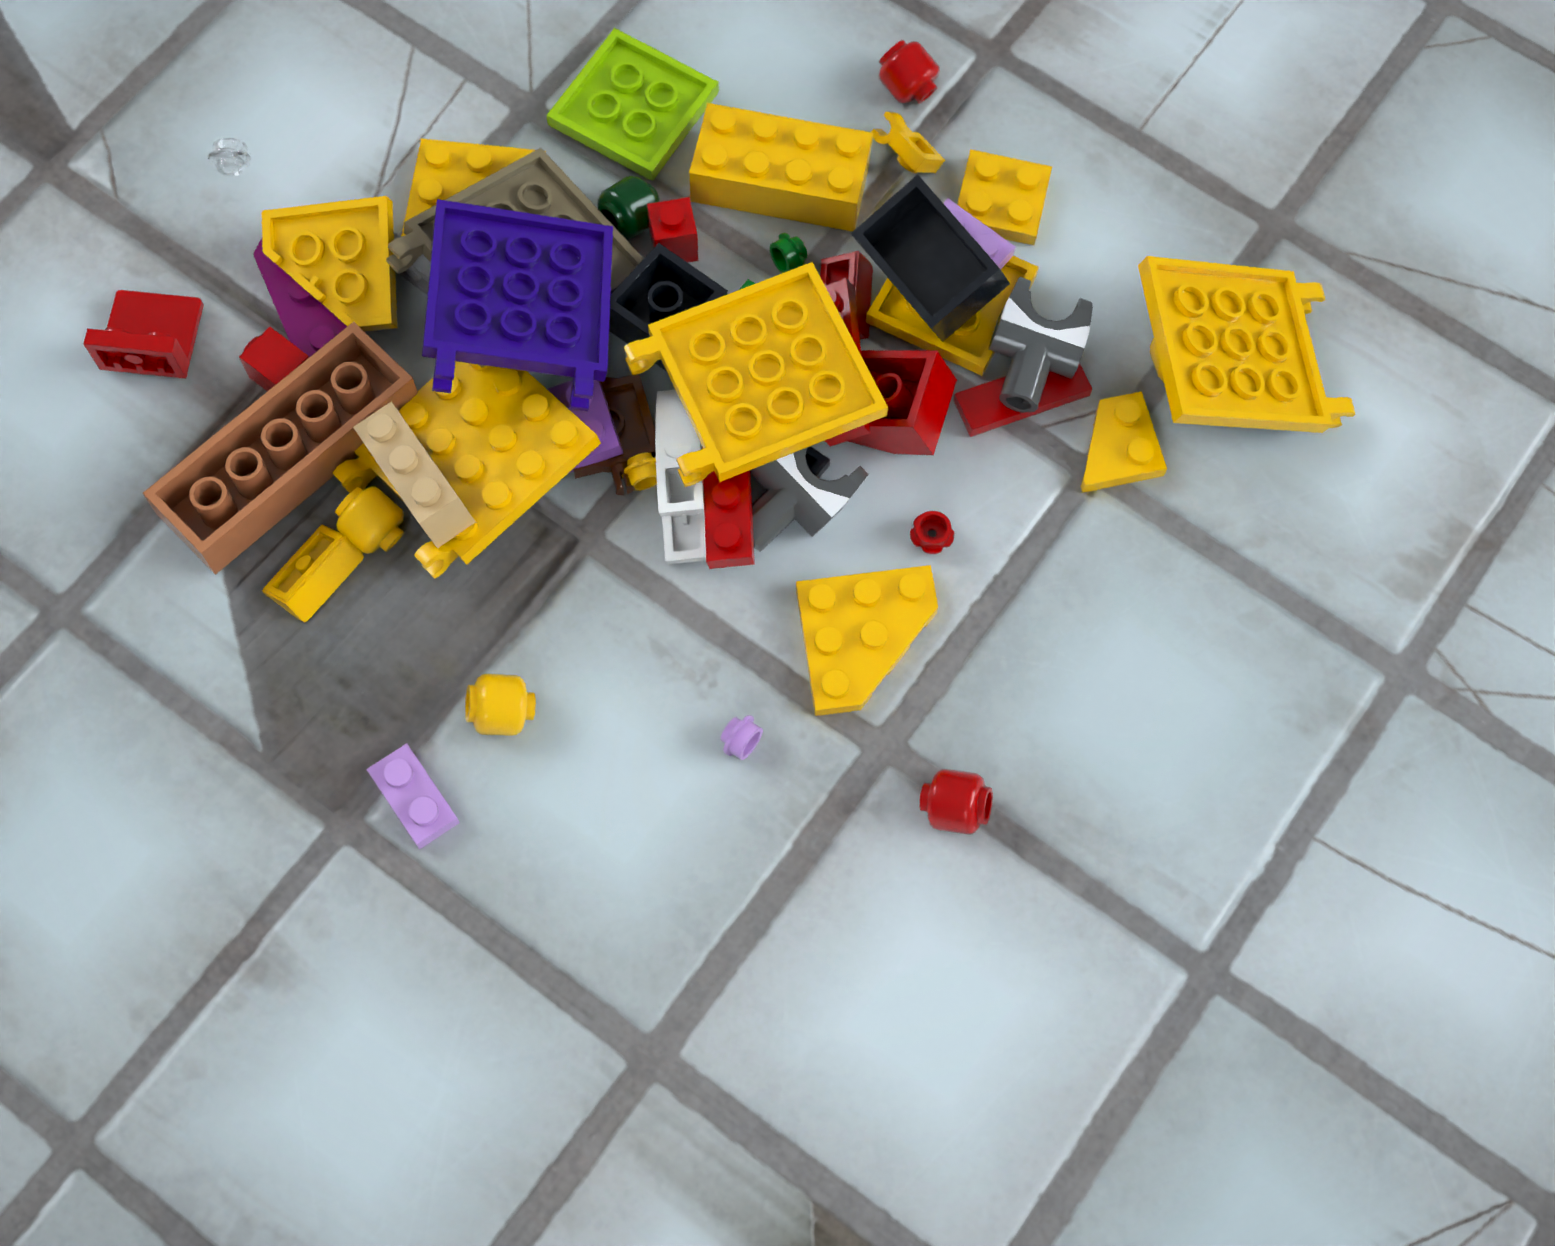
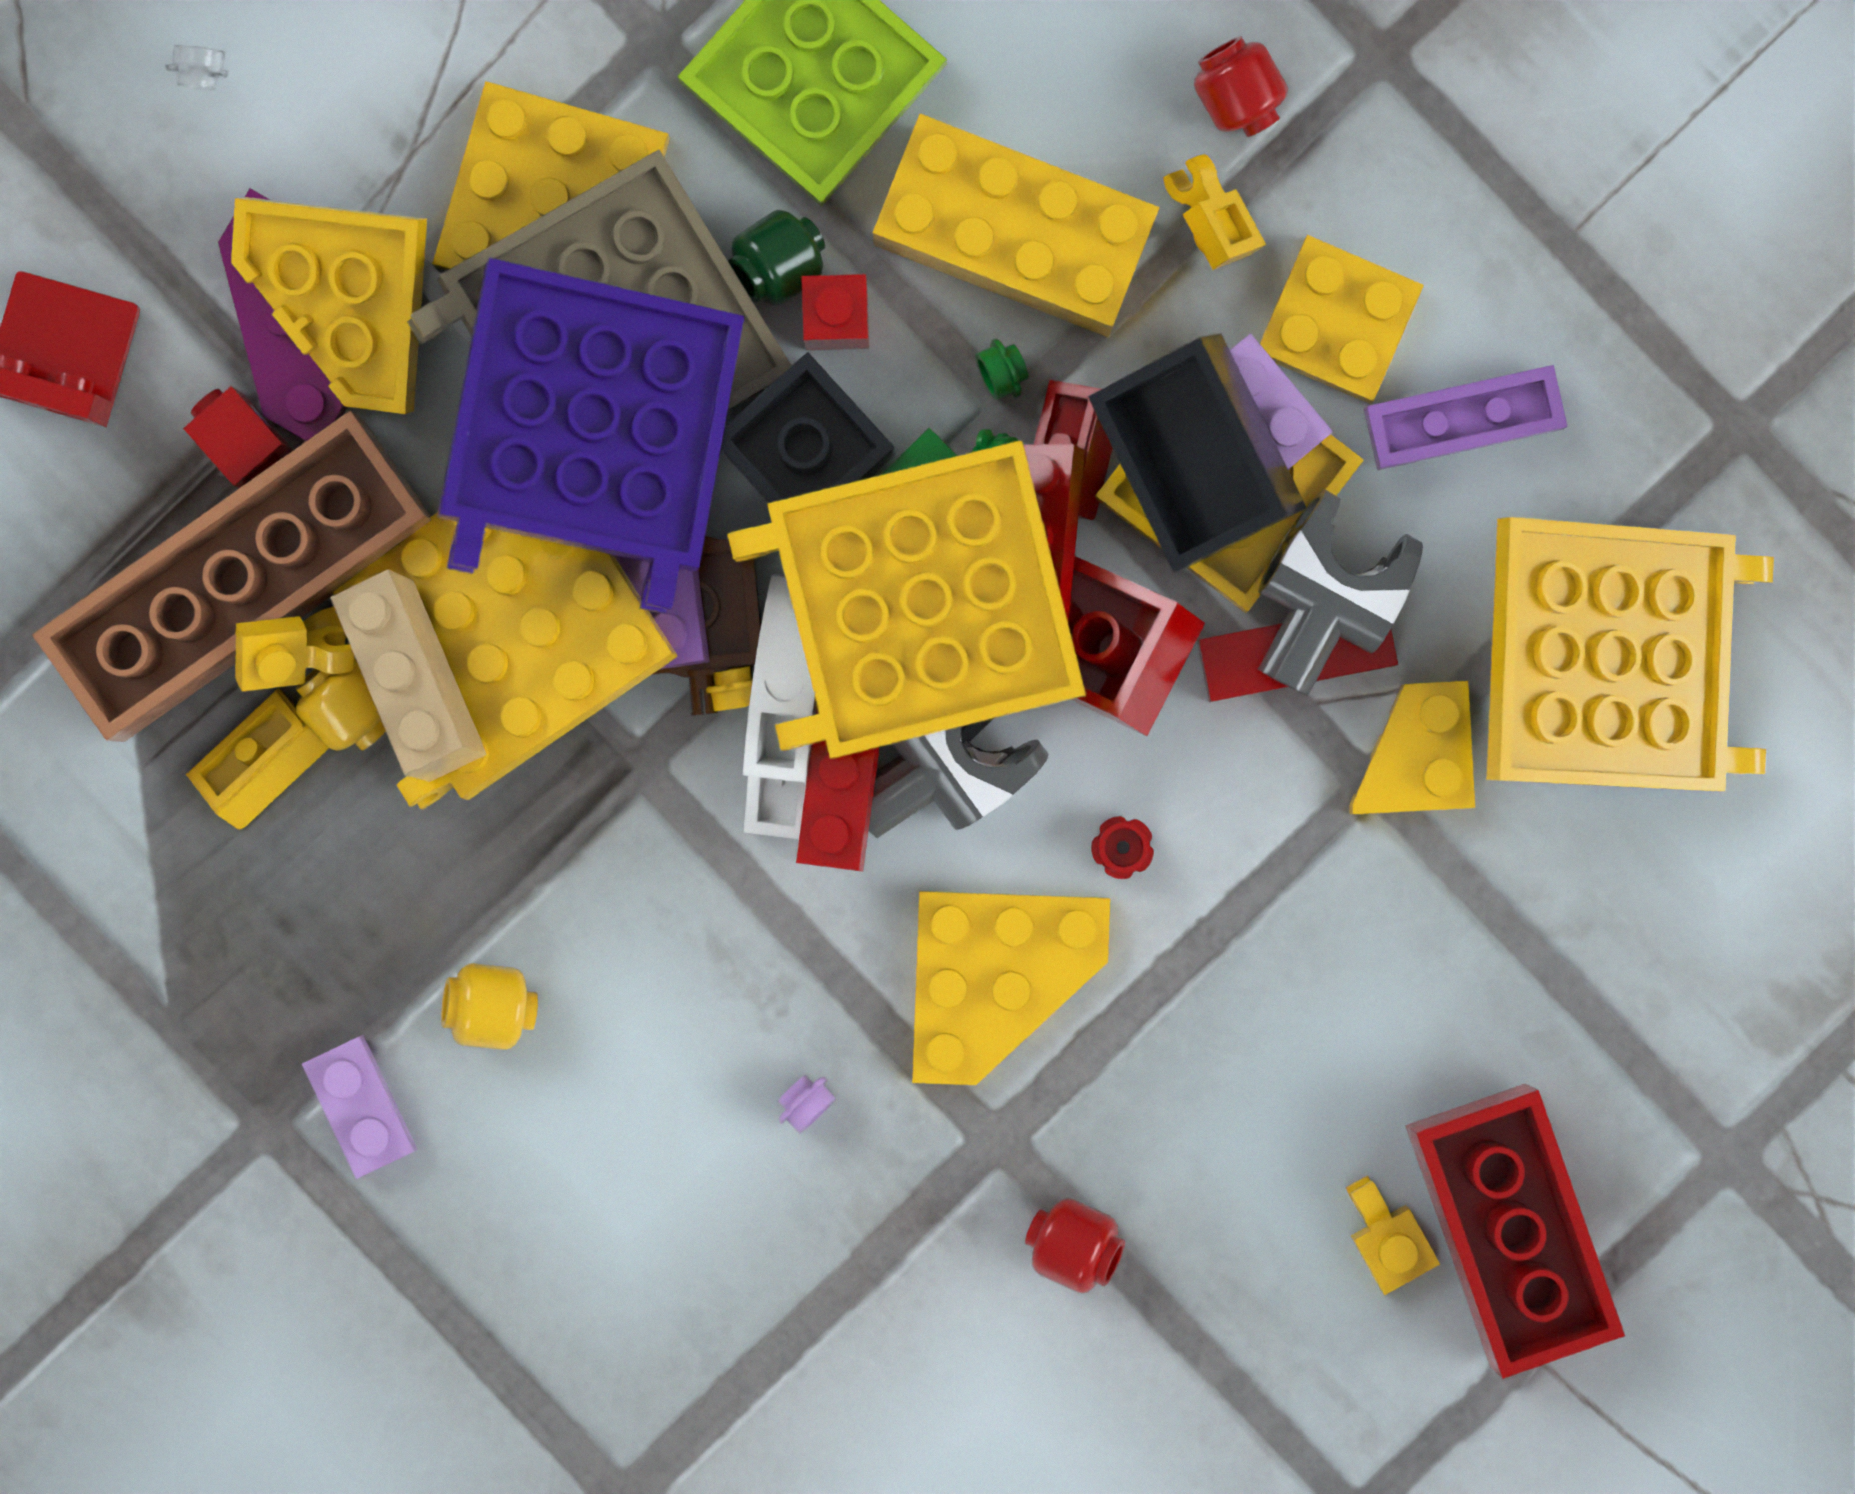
camera: 15 degrees right, 20 degrees up
(319, 480) = (281, 649): none -> yellow plate
(1098, 237) = (1465, 417): none -> medium lavender plate
(1183, 768) = (1391, 1241): none -> yellow plate
(1270, 733) = (1515, 1230): none -> red brick

